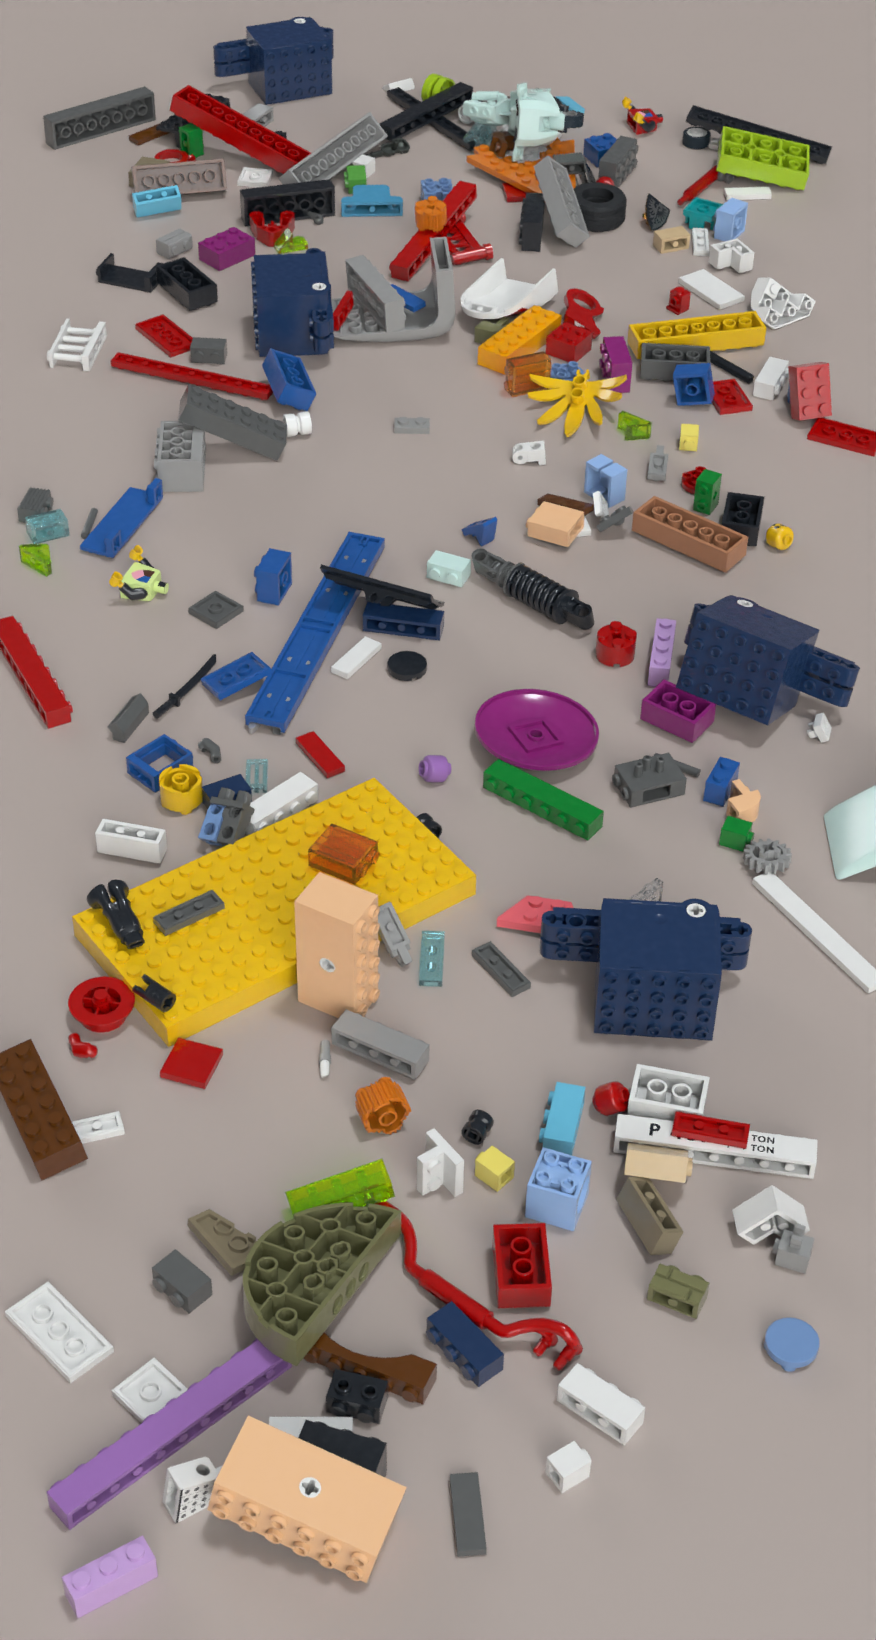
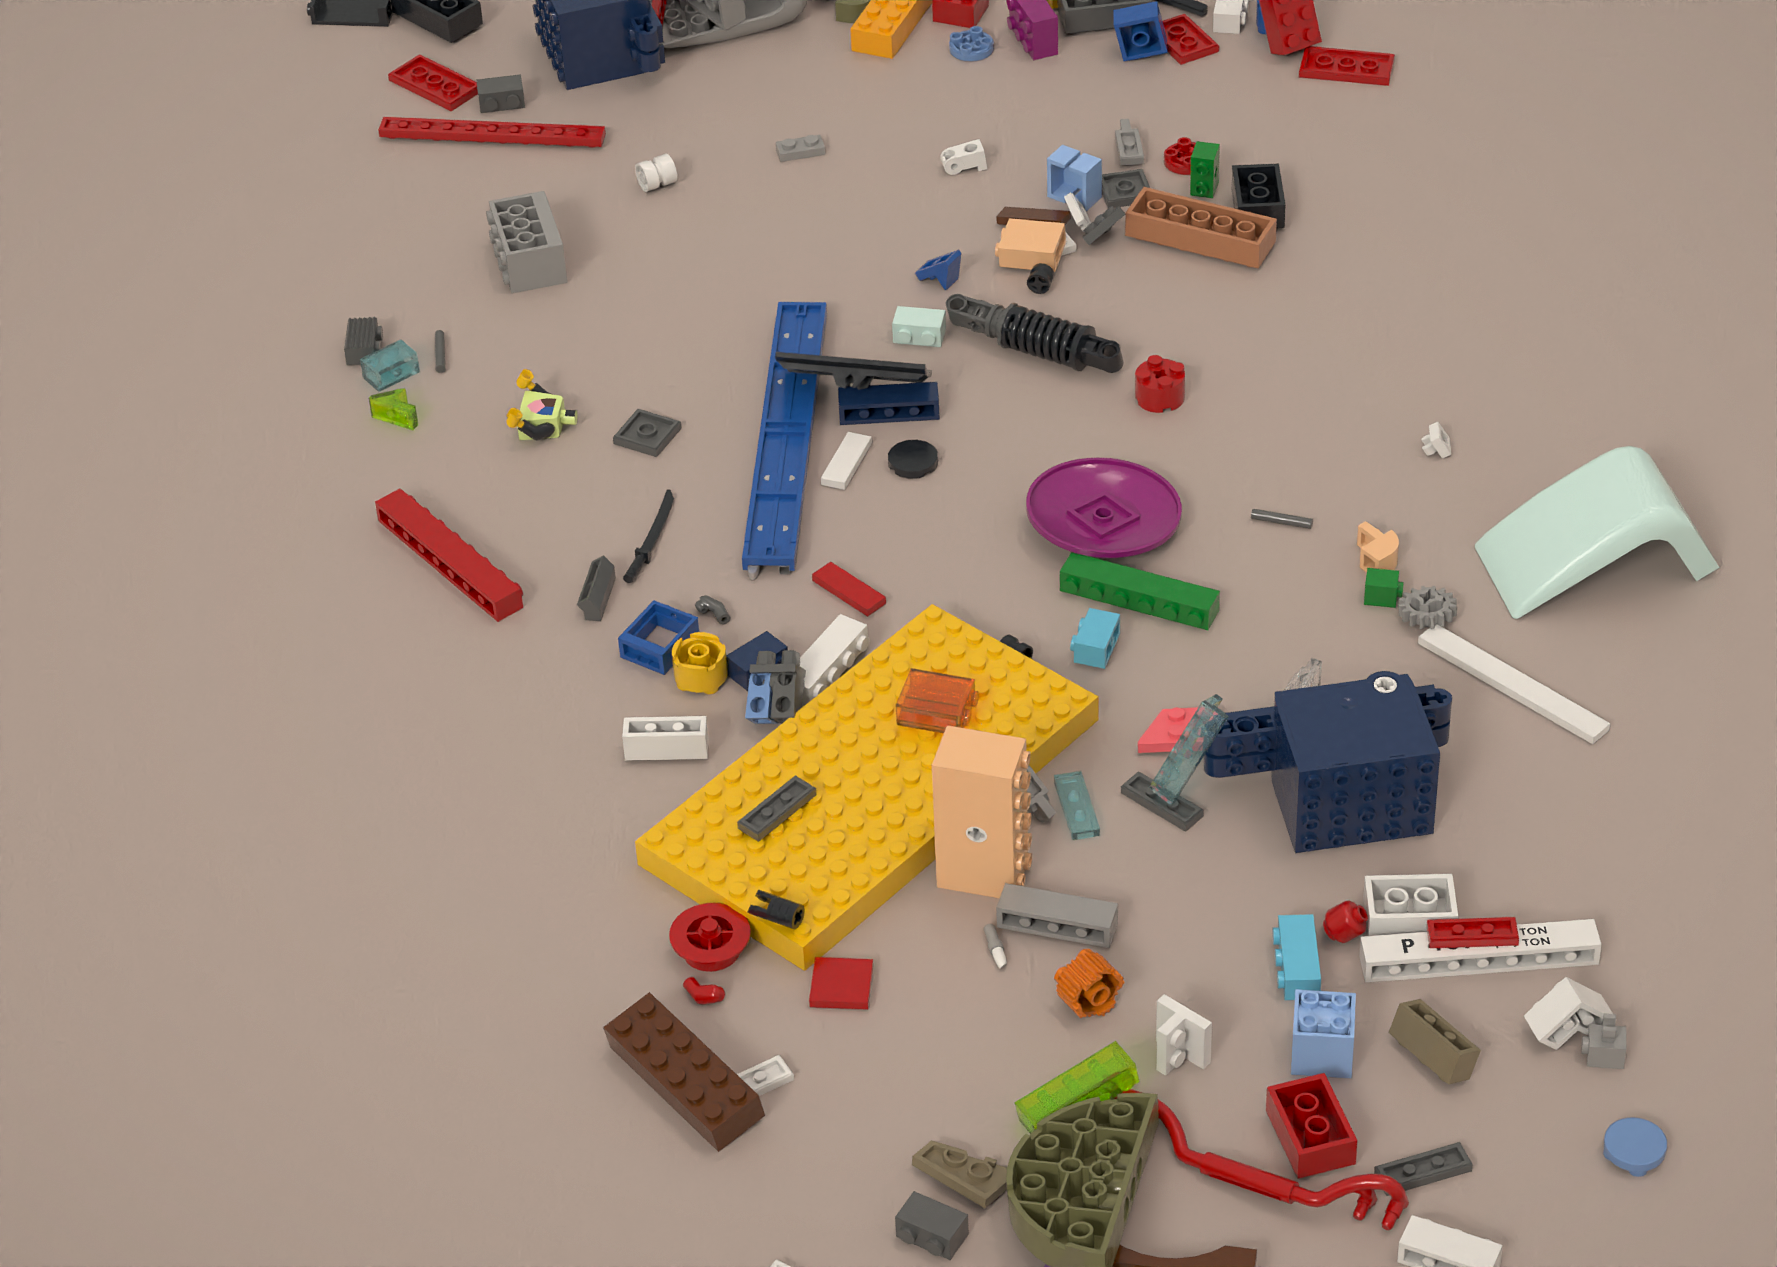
camera: 10 degrees left, 0 degrees up
(90, 351) = (345, 118): white fence -> none
(119, 914) = (697, 825): black piece -> none
(123, 520) = (482, 339): blue bracket -> none
(232, 422) = (581, 186): dark grey brick -> none
(236, 676) = (709, 511): blue tile -> none
(256, 787) = (795, 640): clear light blue tile -> none
(273, 576) = (707, 377): blue brick -> none
(289, 380) = (624, 115): blue brick -> none
(434, 768) = (996, 579): medium lavender head -> none
(464, 1344) = (1277, 1223): dark blue brick -> none
(476, 1128) = (1203, 985): black wheel -> none
(494, 829) = (1096, 638): none -> medium azure brick
(494, 1168) = (1239, 1027): light yellow brick -> none
(518, 371) = (926, 54): clear orange brick -> none
(526, 931) = (1189, 750): none -> clear light blue fence
(554, 550) = (1040, 278): none -> black wheel
(577, 395) = (997, 69): yellow plant -> none
(607, 1322) = (1427, 1166): none -> dark grey tile
(634, 426) = (1083, 99): clear neon green slope -> none
(640, 493) = (1123, 187): none -> dark grey tile
(649, 779) = (1258, 543): dark grey piece -> none
(658, 1163) = (1424, 981): tan brick -> none
(661, 651) = (1218, 384): lavender brick -> none
(677, 711) = (1264, 452): magenta brick -> none
(678, 1290) = (1492, 1116): olive brick -> none
(689, 437) = (1155, 101): light yellow brick -> none
(720, 781) = (1344, 528): blue brick -> none
(759, 661) = (1346, 372): dark blue piece -> none
(779, 536) = (1310, 210): yellow head -> none

